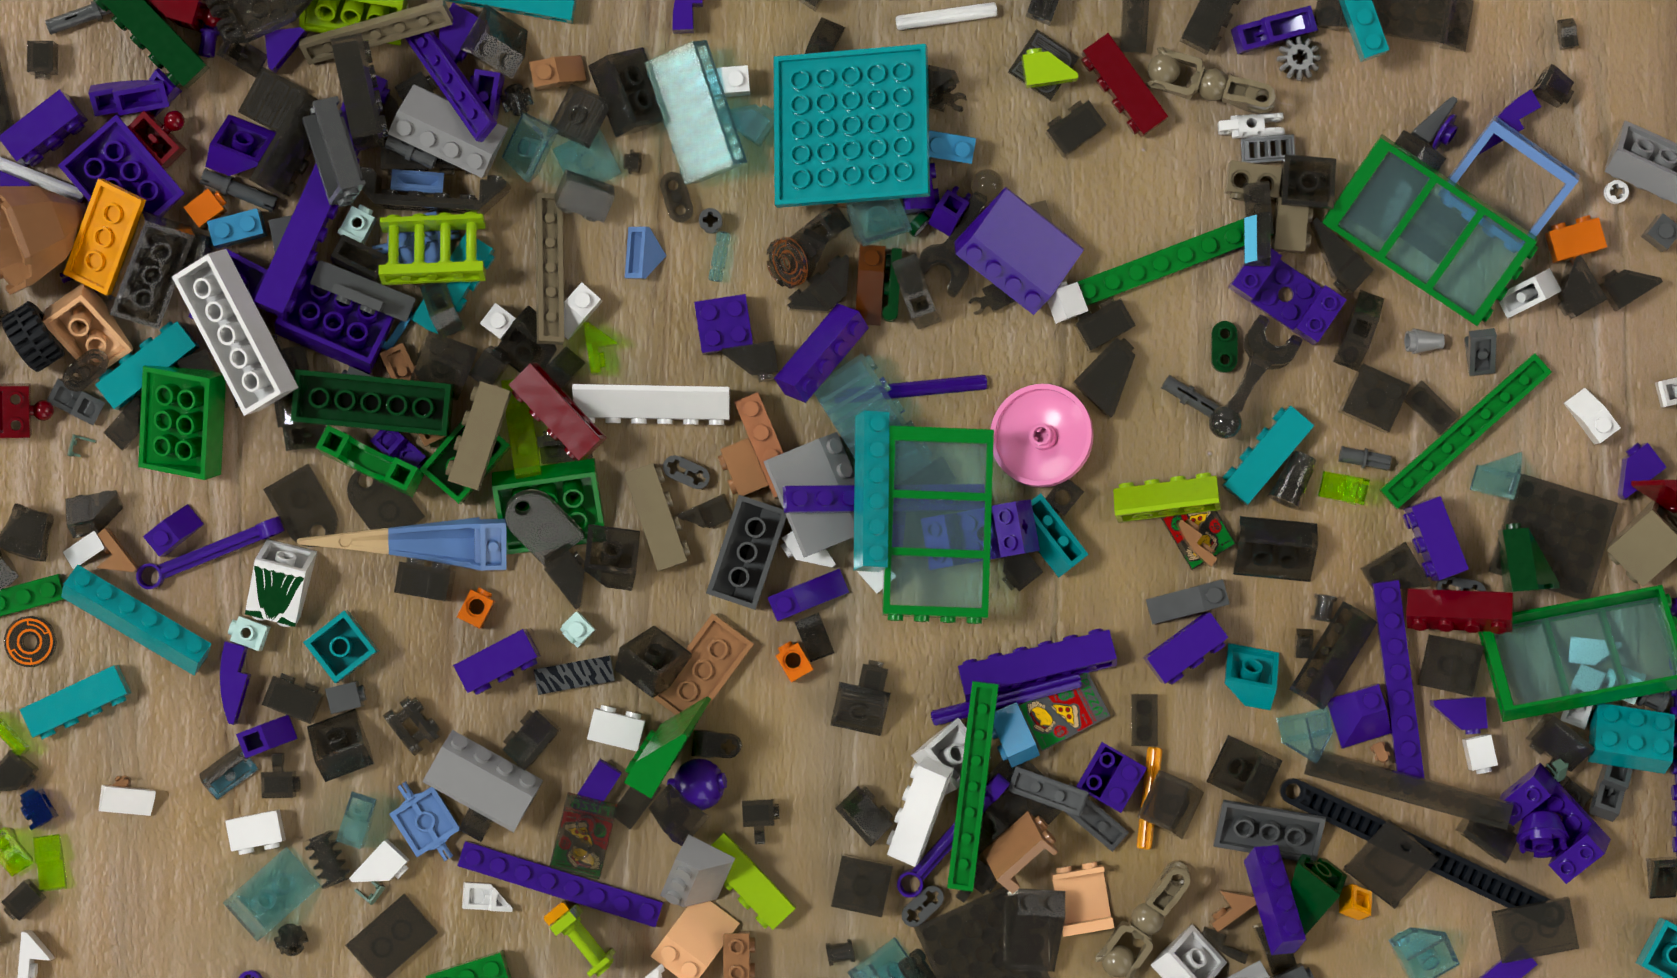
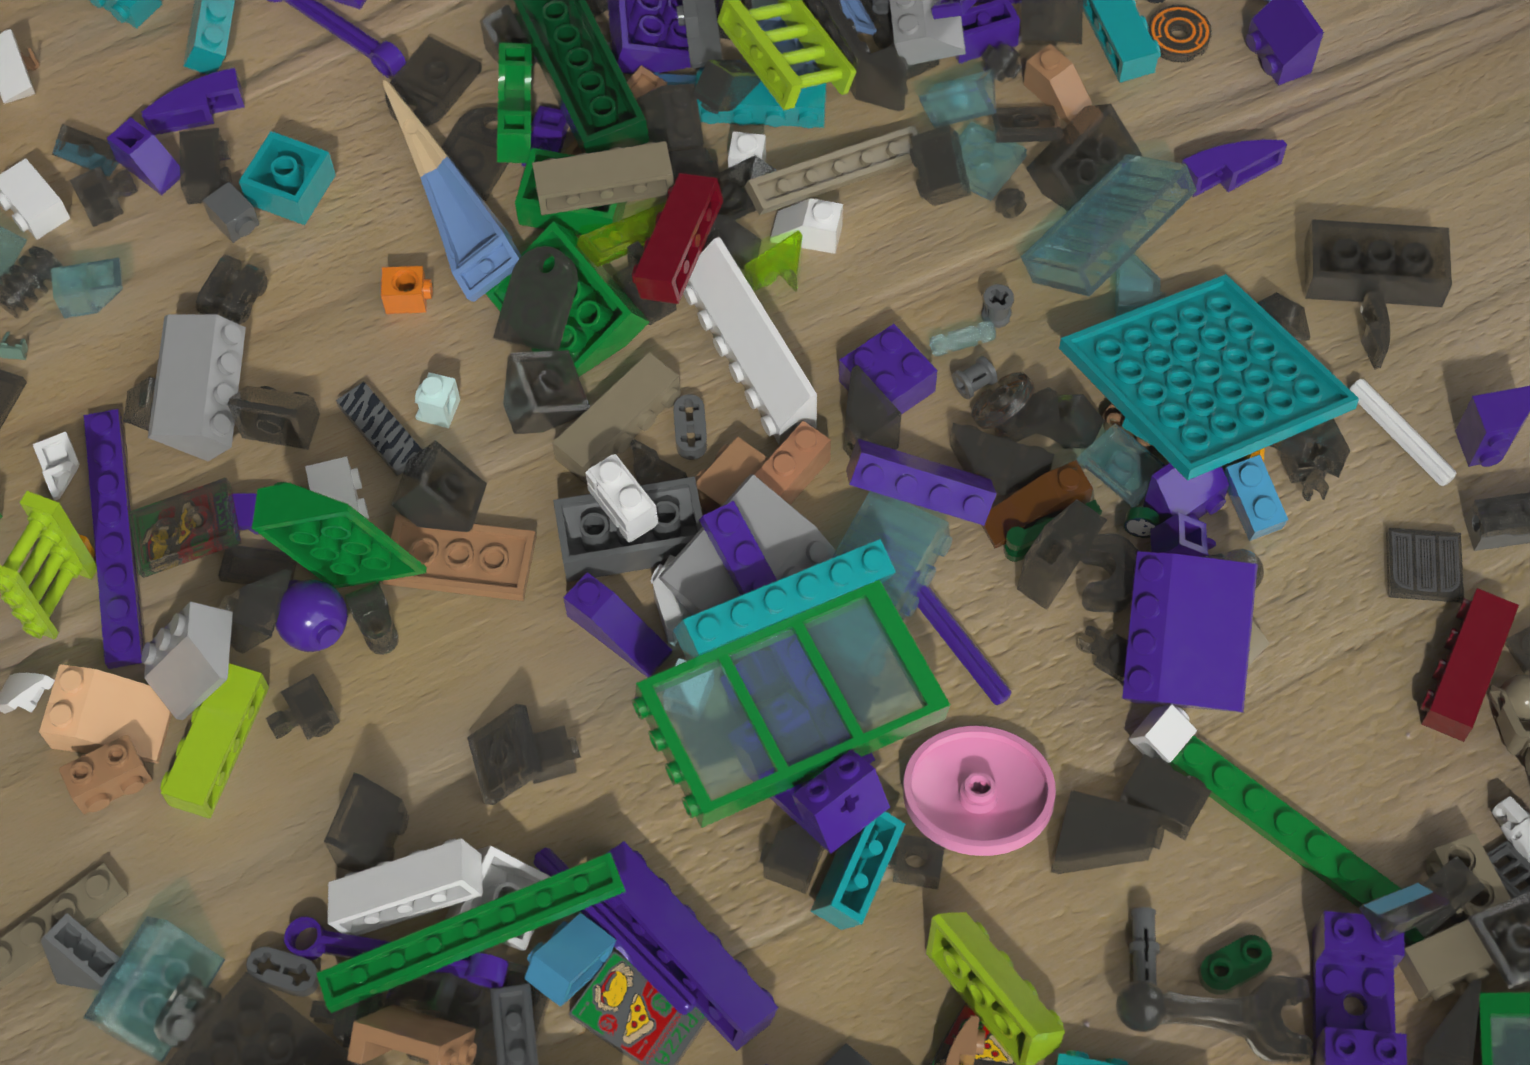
camera: 65 degrees right, 25 degrees down
(258, 633) = (257, 88): light aqua brick -> none
(280, 583) = (330, 92): slope -> none
(339, 745) = (170, 233): clear smoke slope -> none
(382, 864) = (51, 336): white slope -> none
(425, 581) = (409, 217): clear smoke brick -> none
(425, 821) = (120, 357): medium blue plate -> none
(497, 662) = (351, 331): dark purple brick -> none
(569, 576) = (488, 363): clear smoke slope -> none
(642, 253) = (917, 262): medium blue slope -> none
(676, 197) = (997, 262): clear smoke plate -> none
(734, 80) = (1169, 251): white slope -> none
(736, 551) = (621, 497): none -> white brick
(755, 267) = (974, 377): none -> dark grey bush
(797, 672) = (524, 666): orange brick -> none
(814, 637) = (569, 657): clear smoke slope -> none
(840, 952) = (171, 898): clear smoke bush -> none
(861, 885) = (273, 876): clear smoke brick -> none
(1045, 69) = (1422, 560): lime slope -> none
(1075, 128) = (1378, 636): clear smoke brick -> none

